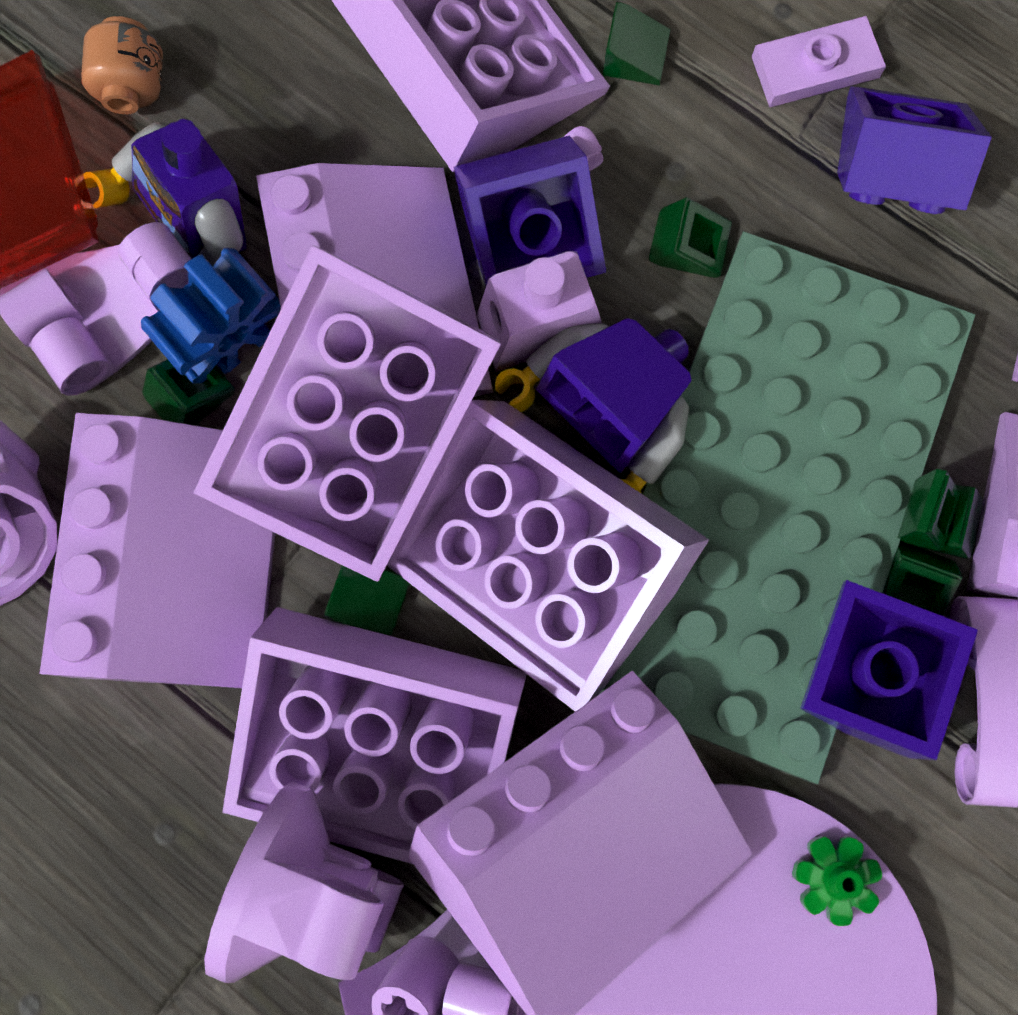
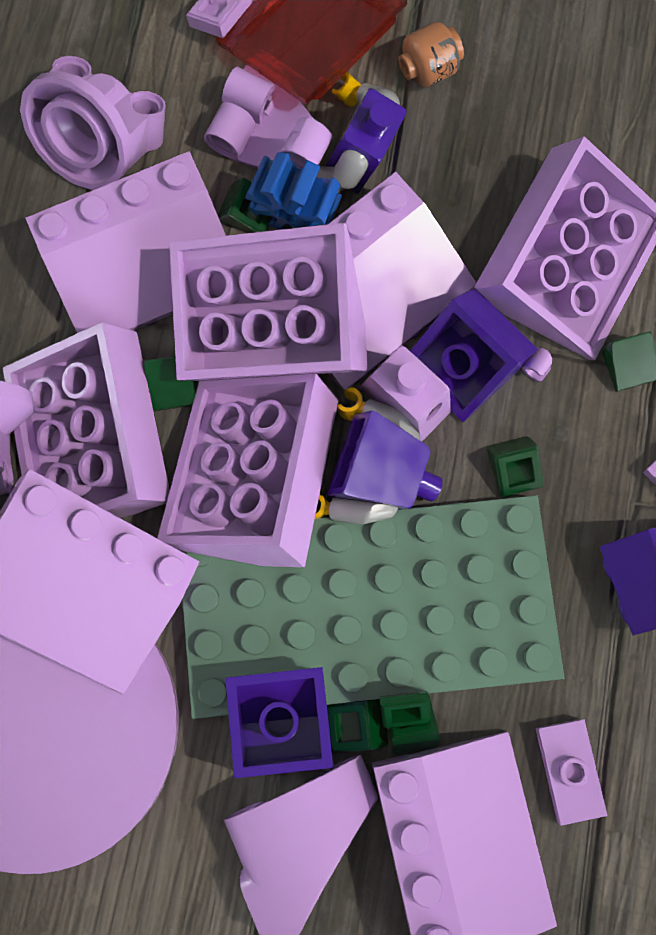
camera: 60 degrees right, 0 degrees up
(837, 879) = (146, 757): green plant -> none

